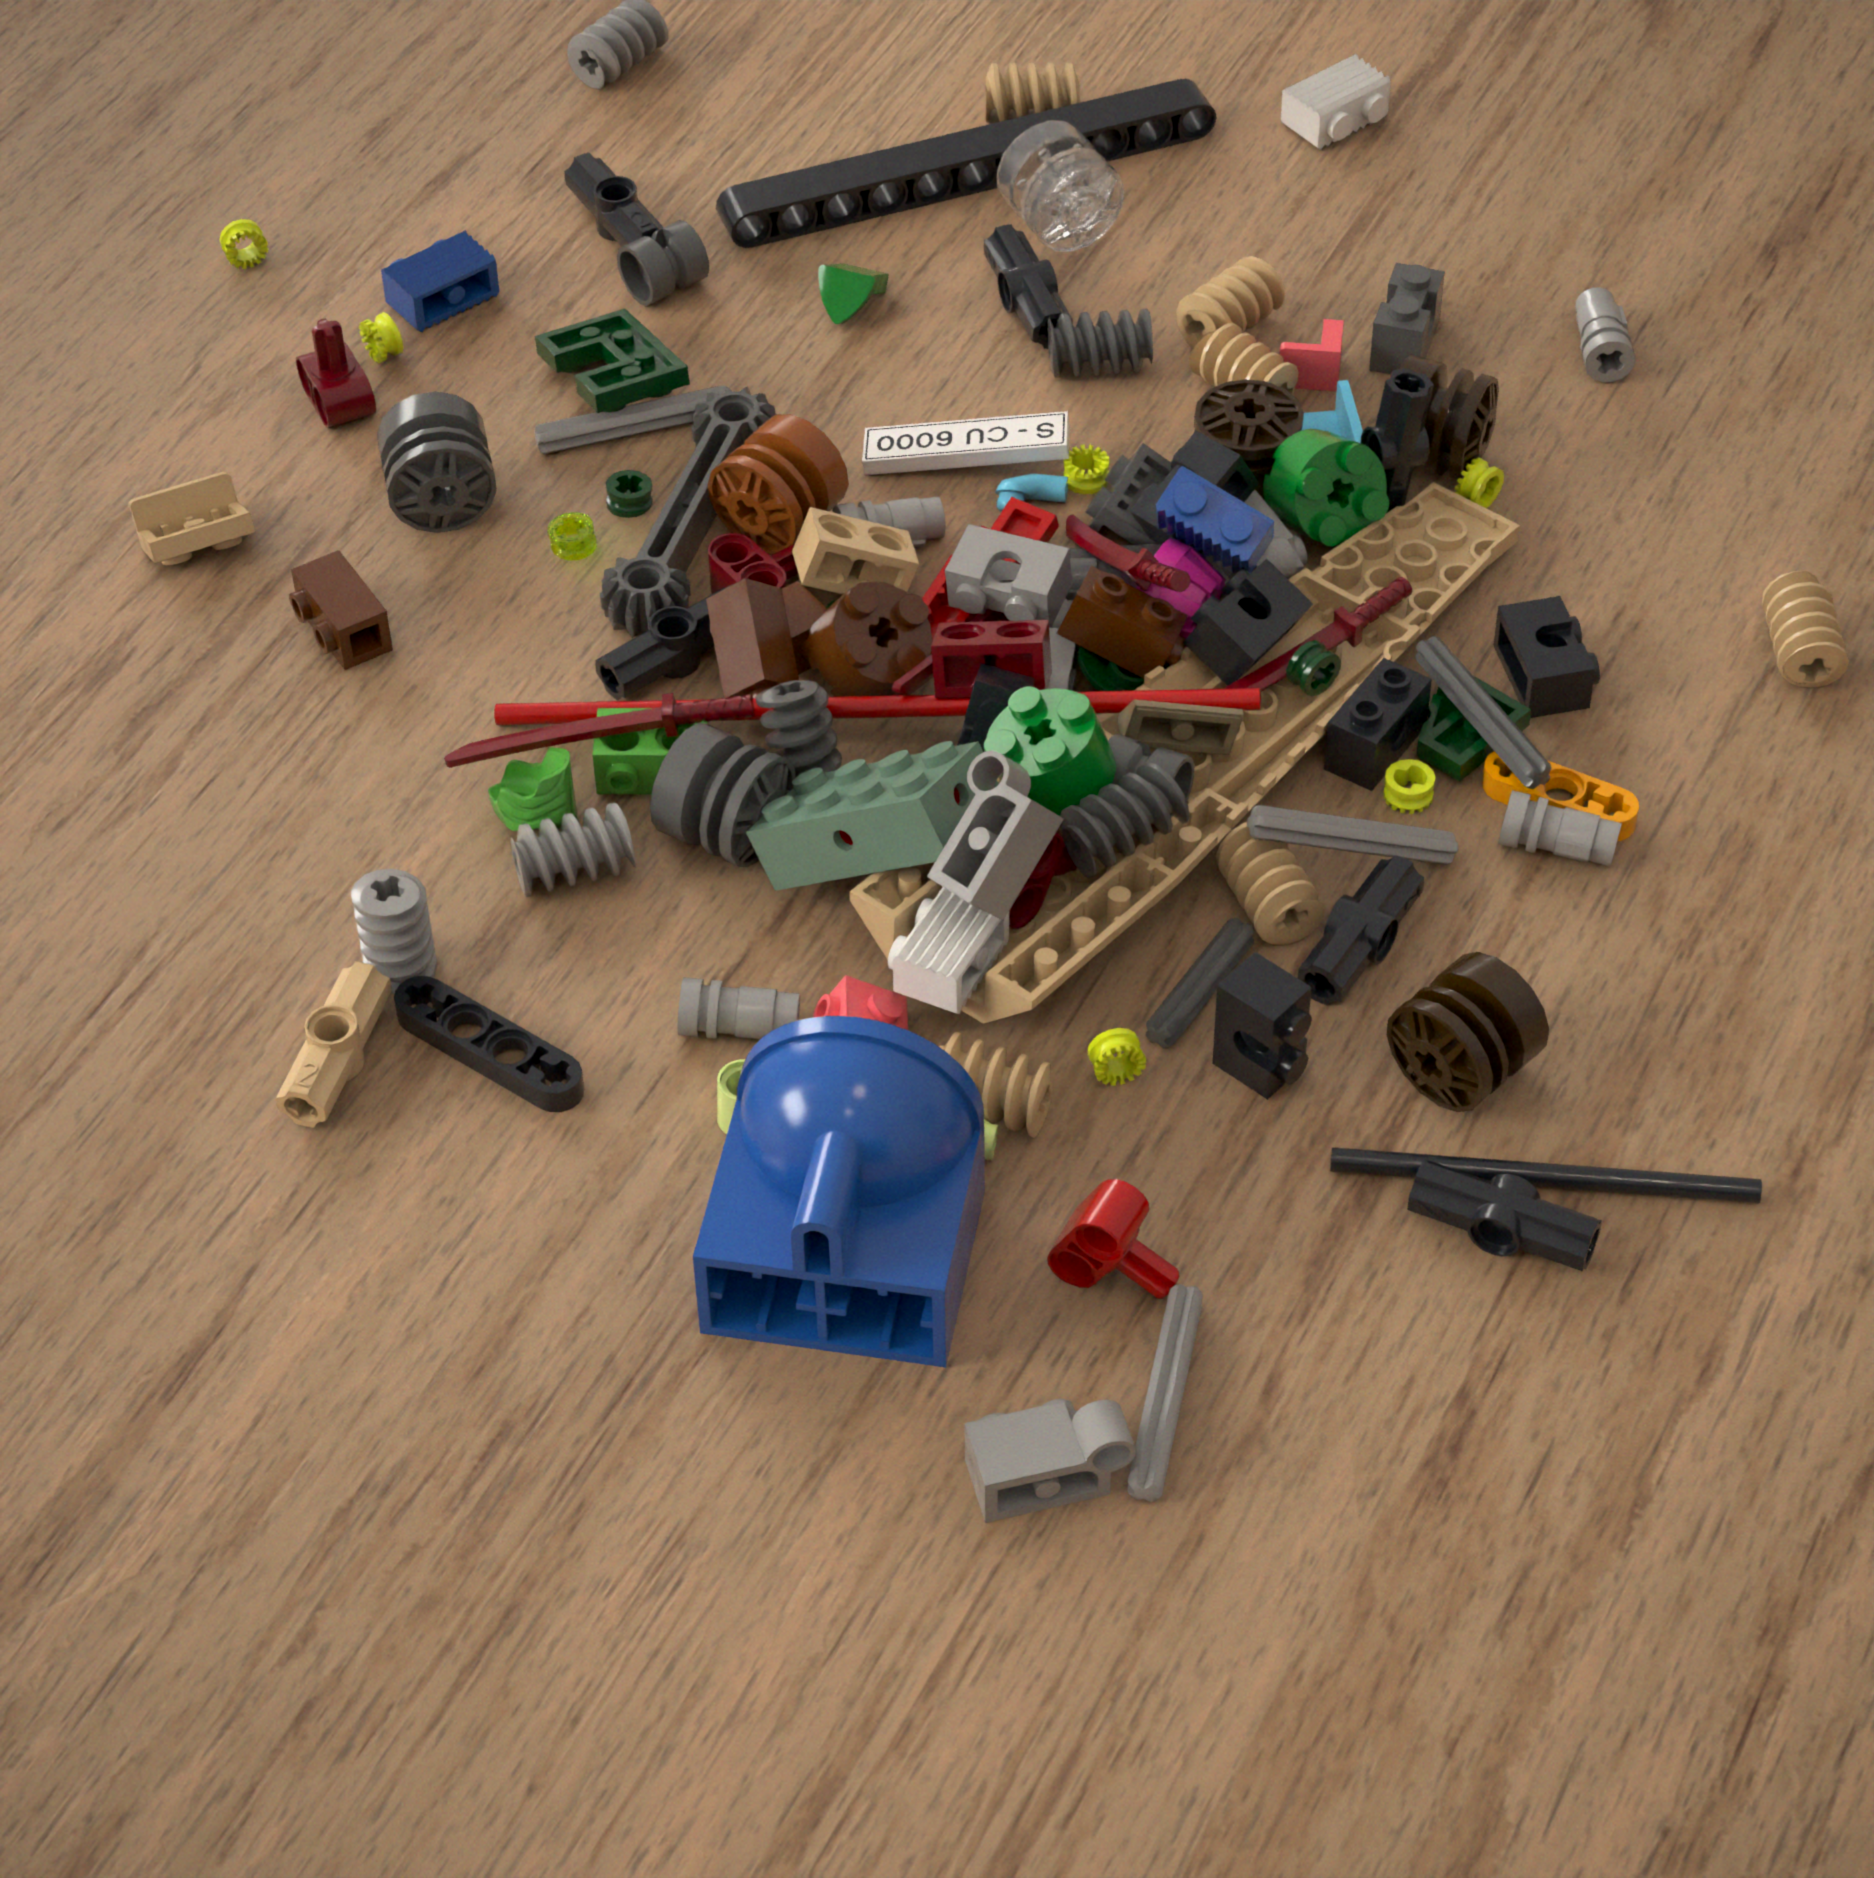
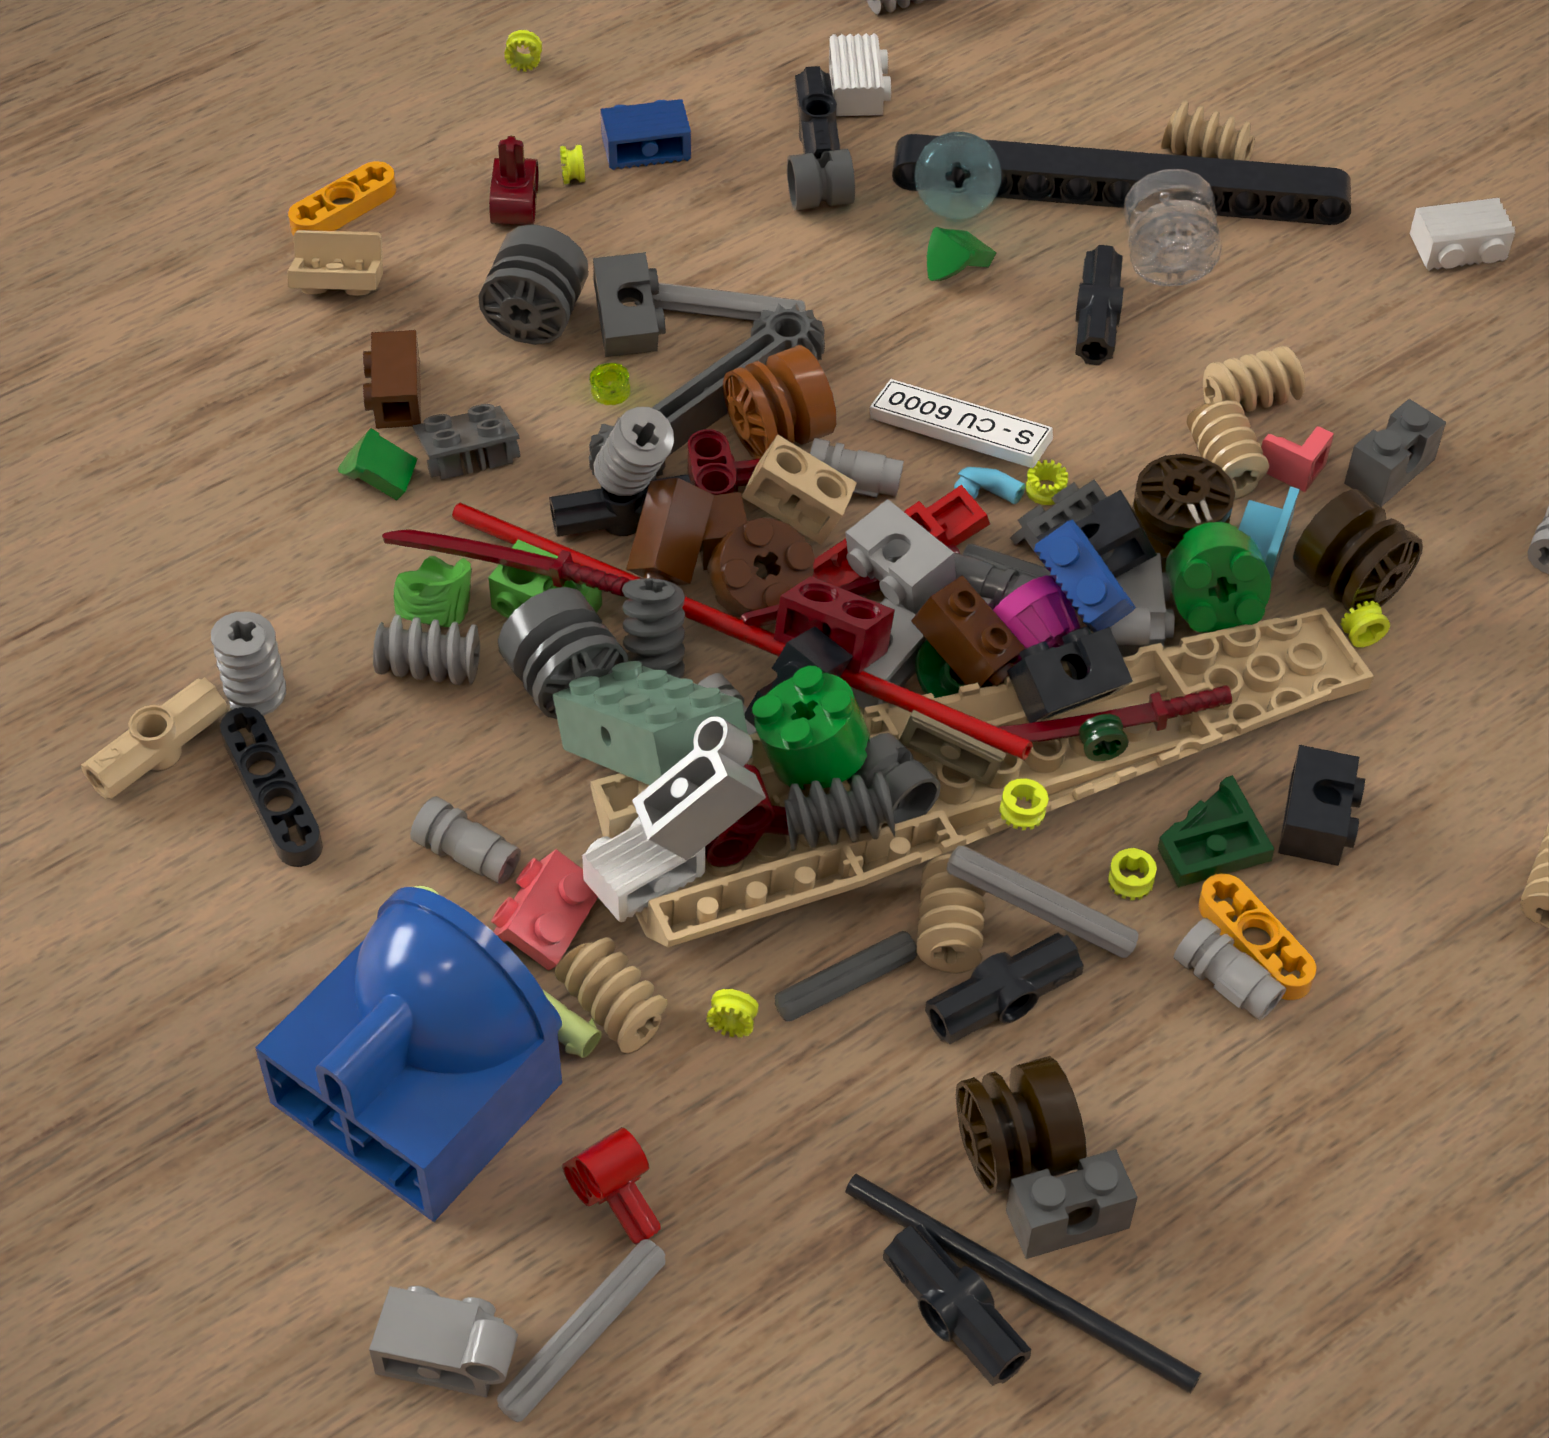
camera: 25 degrees right, 5 degrees up
(146, 441) = (366, 185): none -> light orange beam
(382, 696) = (379, 464): none -> green tile
(462, 642) = (481, 427): none -> dark grey hinge
(549, 474) = (623, 327): none -> dark grey brick
(620, 498) = (673, 374): dark green bush -> none
(629, 147) = (857, 75): none -> white brick
(635, 358) = (748, 256): dark green plate -> none
(681, 571) = (634, 451): none -> light grey piece
(819, 182) = (973, 157): none -> clear light blue brick
(1100, 342) = (1120, 377): dark grey piece -> none
(1140, 567) = (1002, 593): dark red sword -> none
(1262, 1025) = (853, 1041): black brick -> none
(1285, 763) = (1019, 816): none -> neon yellow bush
(1377, 724) = (1134, 807): black brick -> none
(1400, 432) = (1298, 559): black piece -> none
(1483, 712) = (1226, 837): dark grey axle -> none
(1531, 1093) = (1041, 1204): none -> dark grey brick

